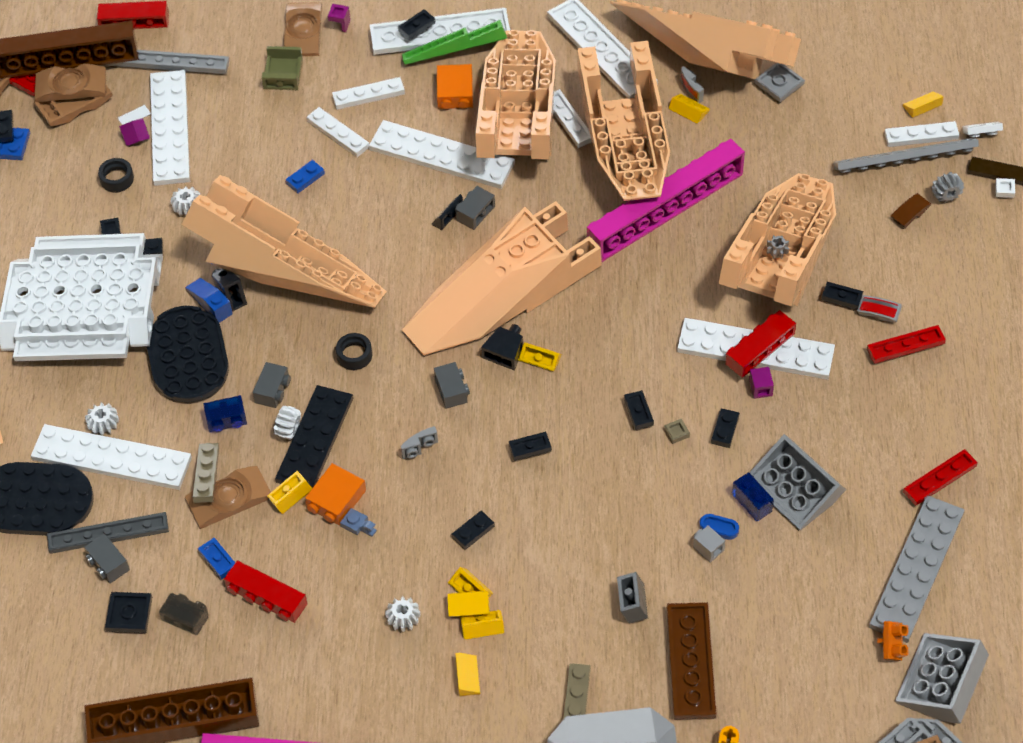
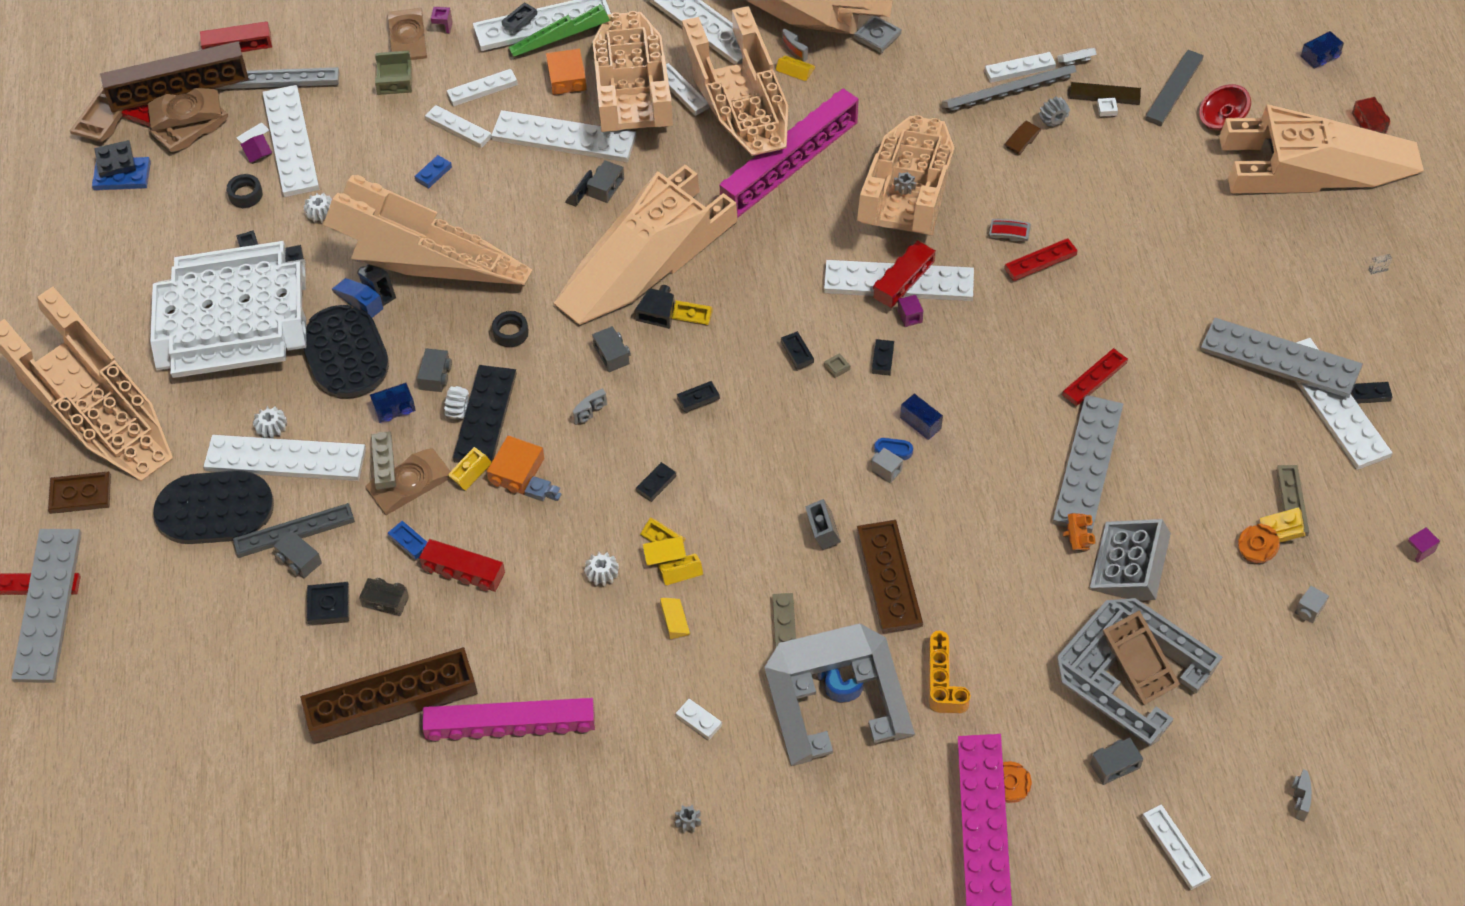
camera: 10 degrees left, 0 degrees up
(796, 482) = (961, 398): light grey slope -> none
(842, 295) = (972, 222): black plate -> none
(923, 104) = (1017, 39): yellow slope -> none

